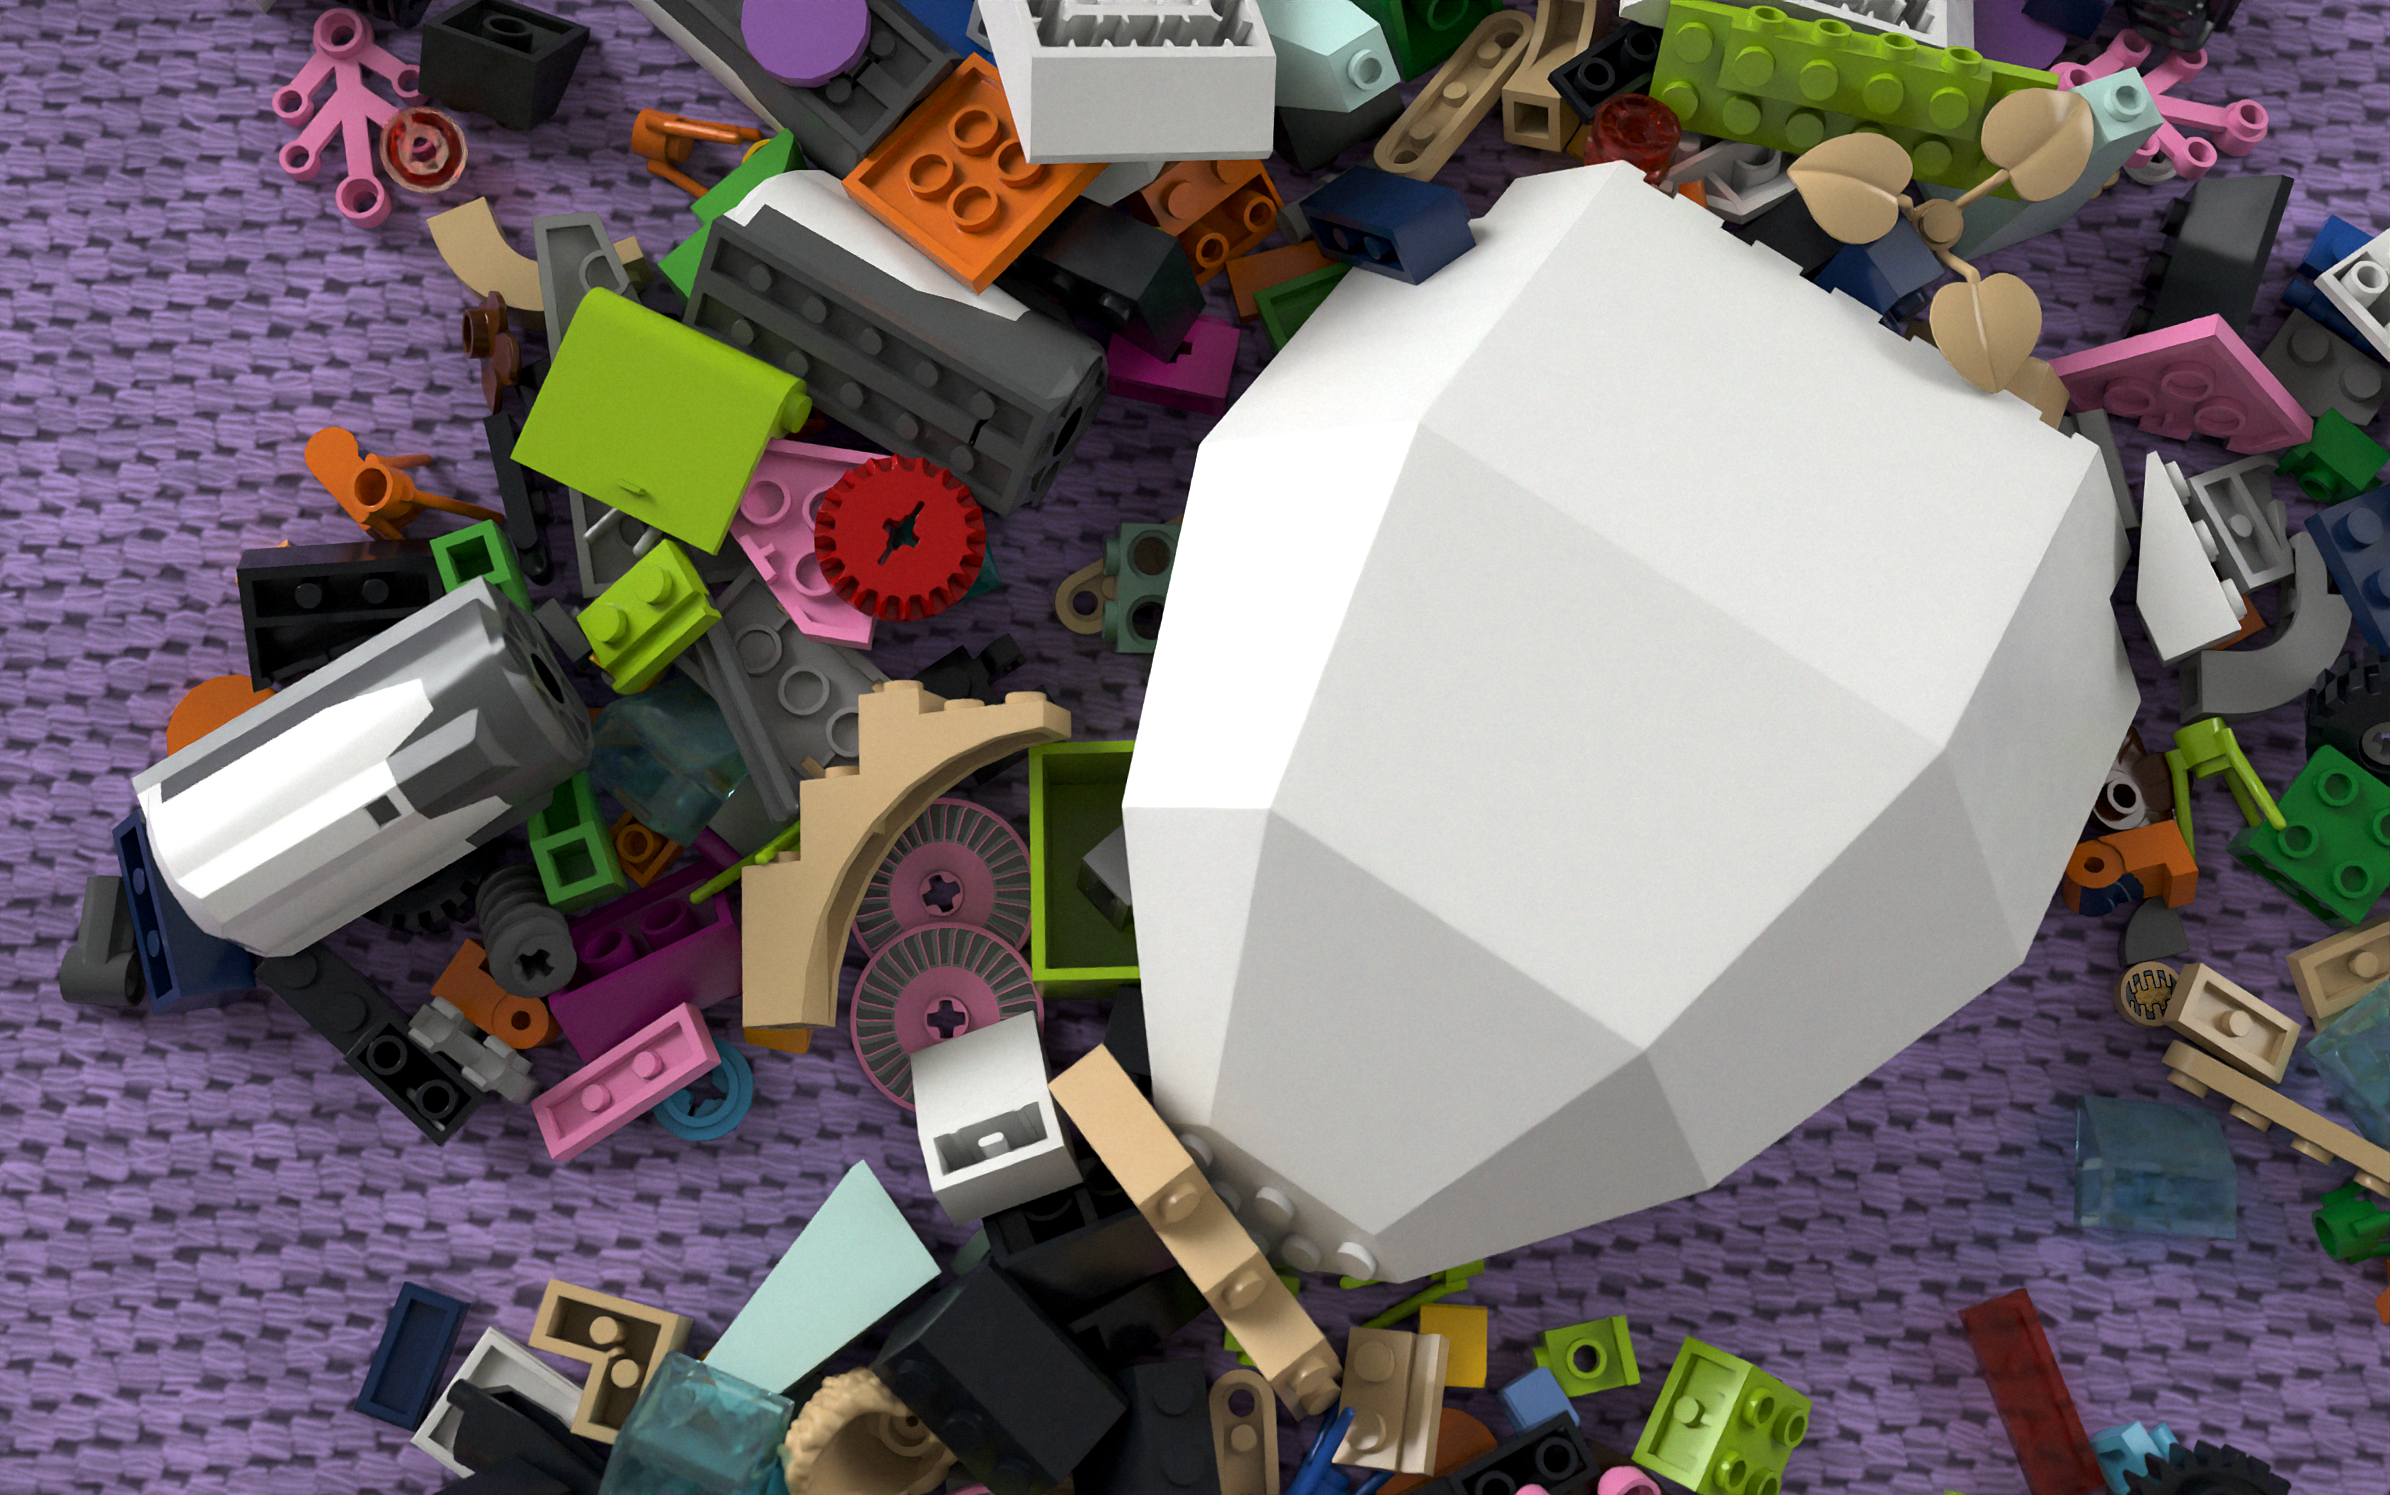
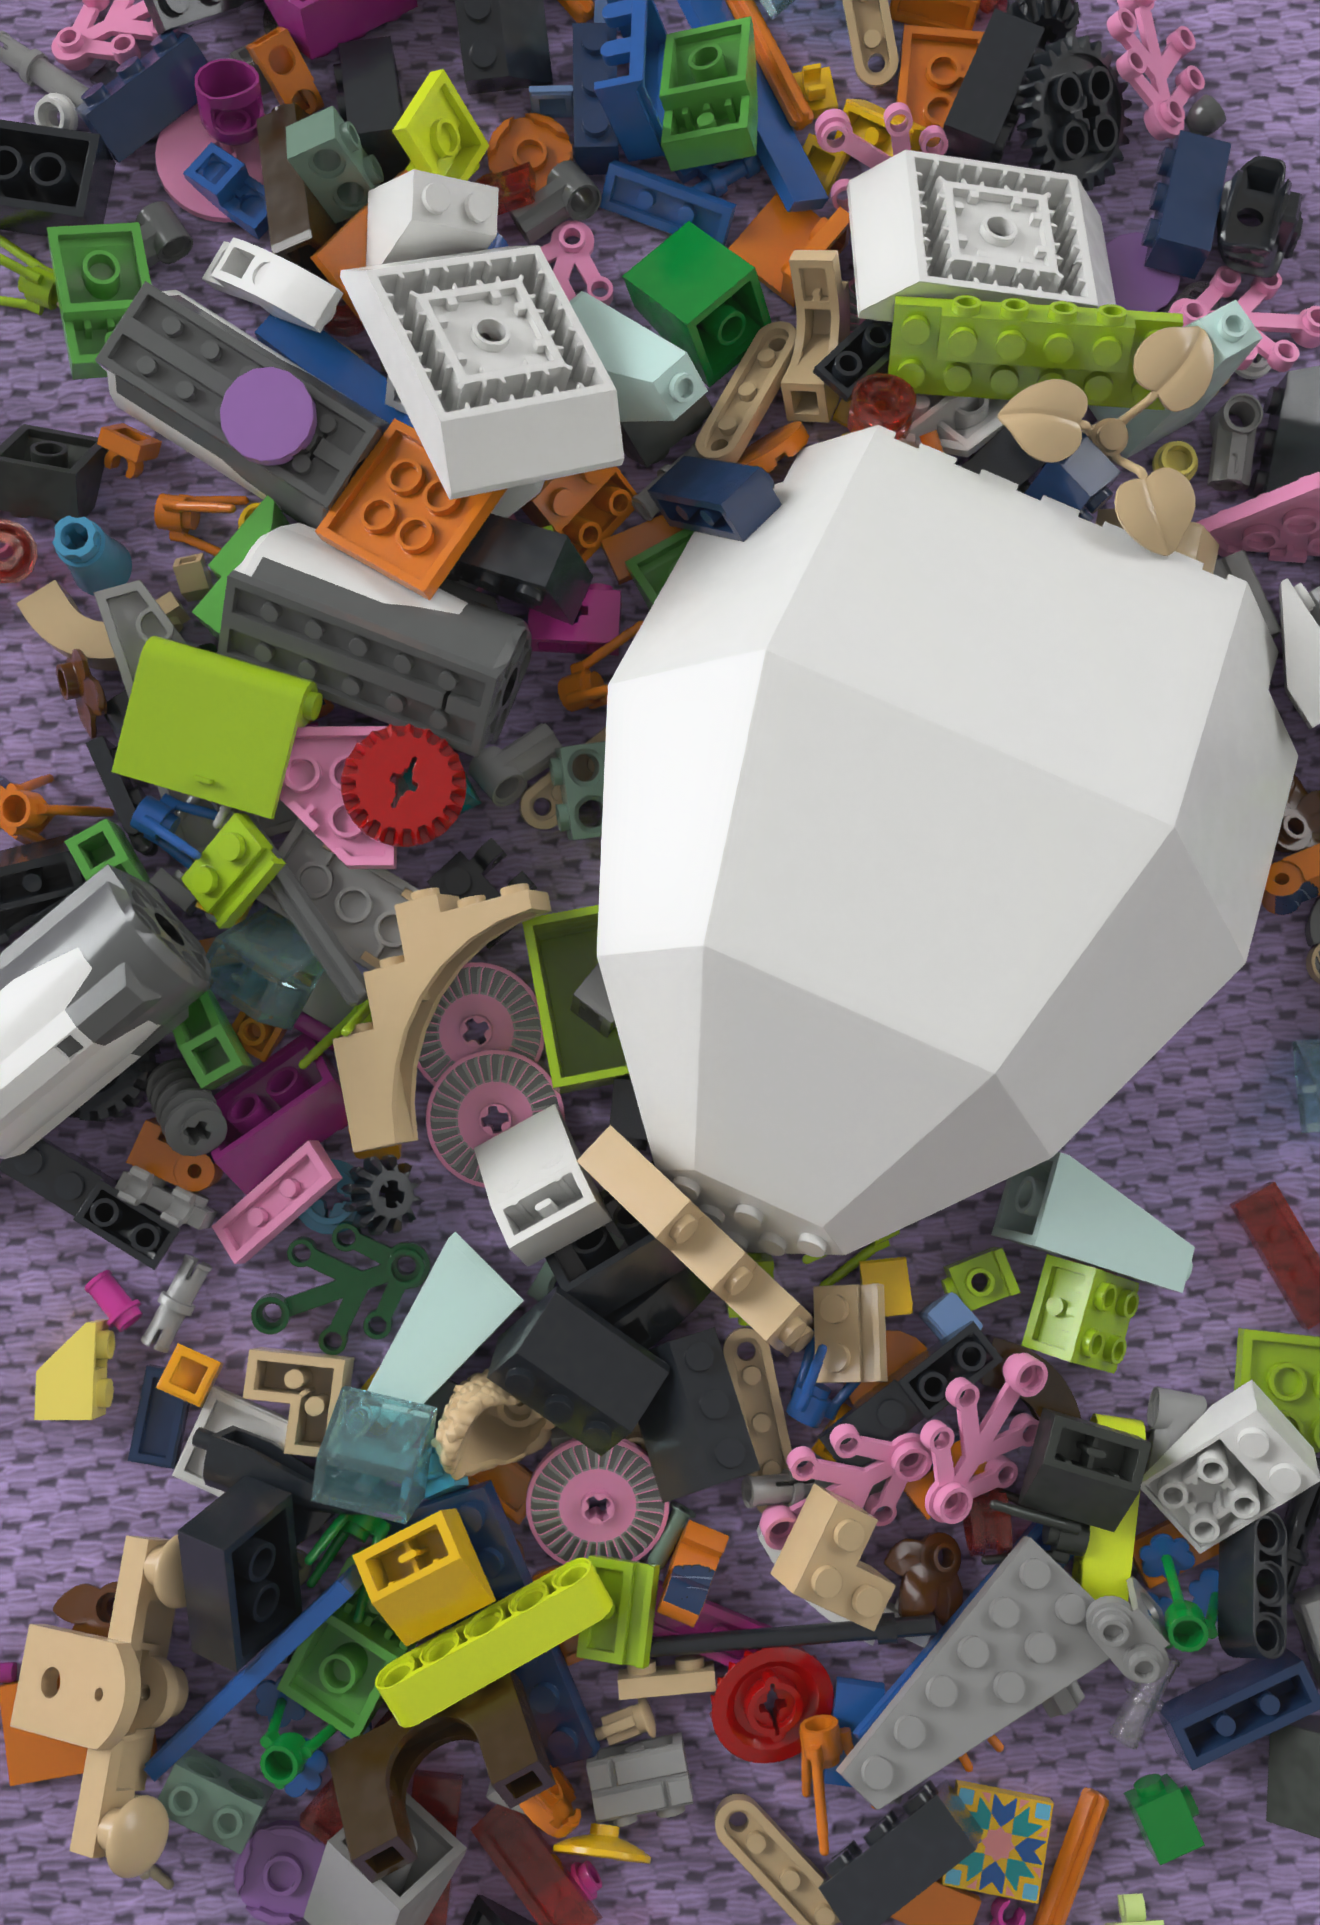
camera: 10 degrees left, 5 degrees up
(304, 1278) = (75, 1377): none -> light yellow slope
(377, 1183) = (114, 1301): none -> dark pink pin
(461, 1202) = (176, 1303): none -> light grey pin
(461, 1304) = (189, 1375): none -> light orange slope
(537, 170) = (91, 555): none -> dark azure plant
(562, 540) = (159, 823): none -> blue plant
(616, 37) = (128, 443): none -> orange tile
(667, 222) = (193, 576): none -> tan piece
(706, 1215) = (349, 1284): none -> dark green plant
(759, 1115) = (380, 1212): none -> black gear
(1044, 547) = (506, 771): none -> light grey piece
(1173, 453) = (585, 687): none -> orange plant
(1484, 170) = (774, 446): none -> orange tile
(1736, 1286) = (1085, 1219): none -> light aqua slope
(2035, 270) = (1177, 456): none -> light yellow plate
(2110, 268) = (1233, 445): none -> light grey piece

